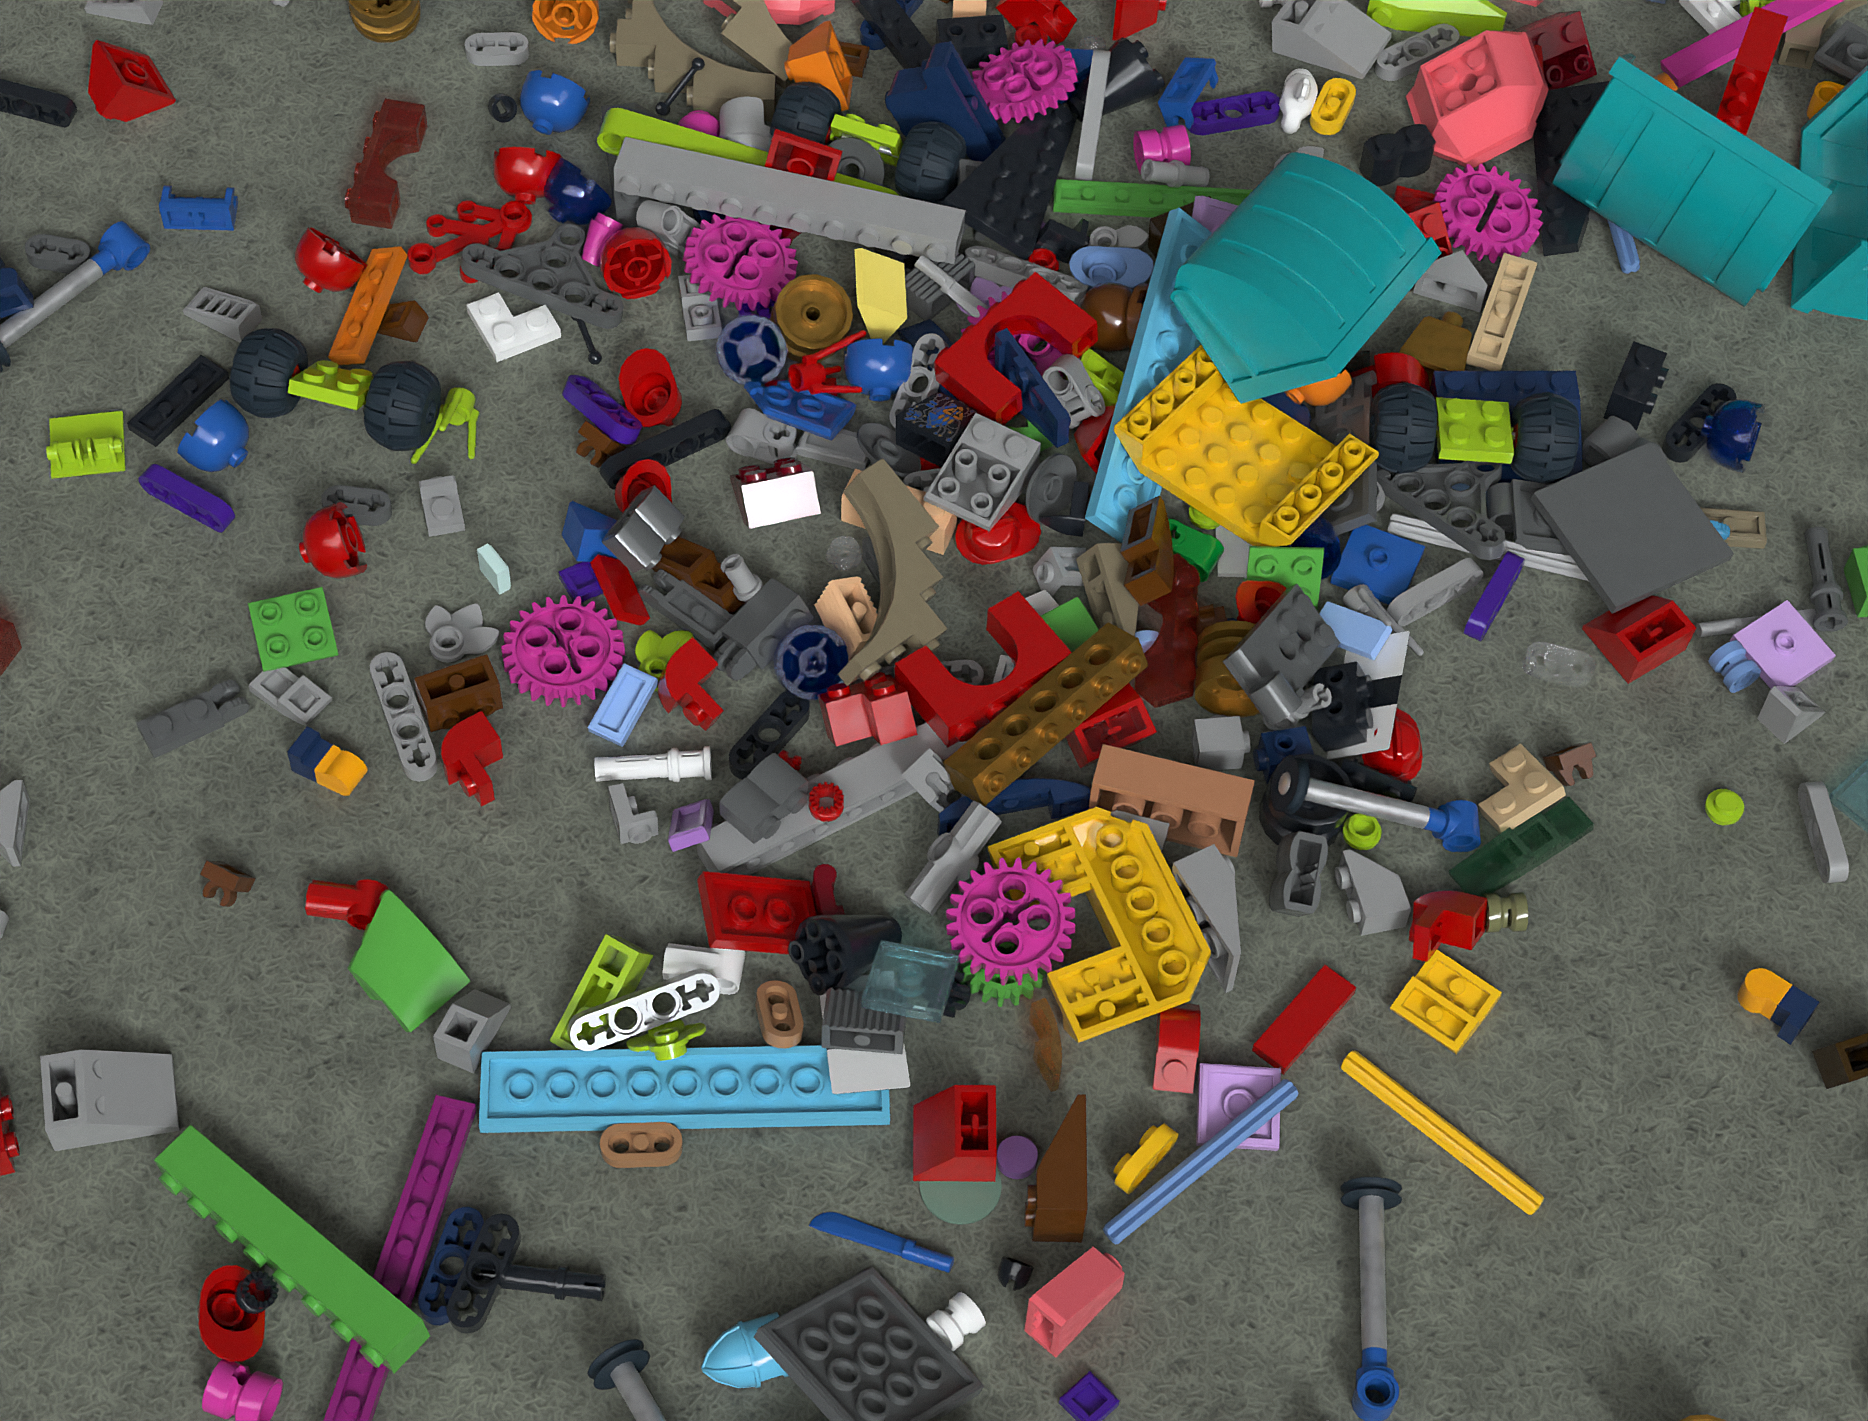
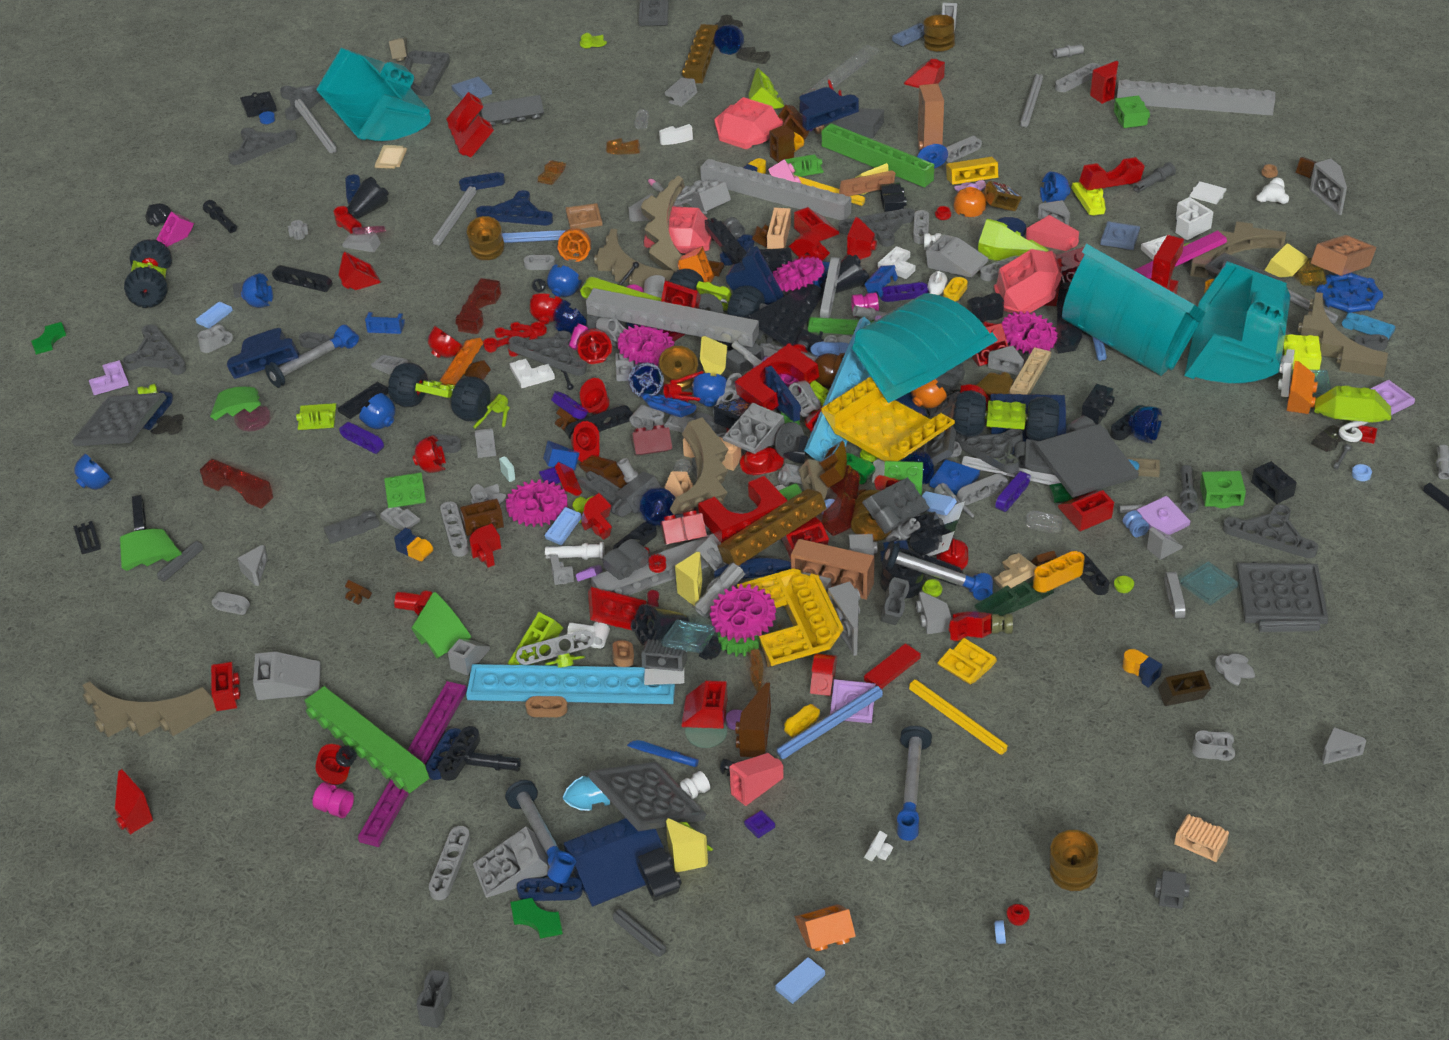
camera: 10 degrees right, 15 degrees down
(644, 530) = (581, 450): dark grey brick -> none
(892, 837) = (689, 578): none -> light yellow slope
(1208, 40) = (898, 257): none -> white plate
(1582, 597) = (1059, 493): none -> dark green plate
(1611, 778) = (1058, 571): none -> light orange beam
(1656, 767) = (1098, 577): none -> black beam

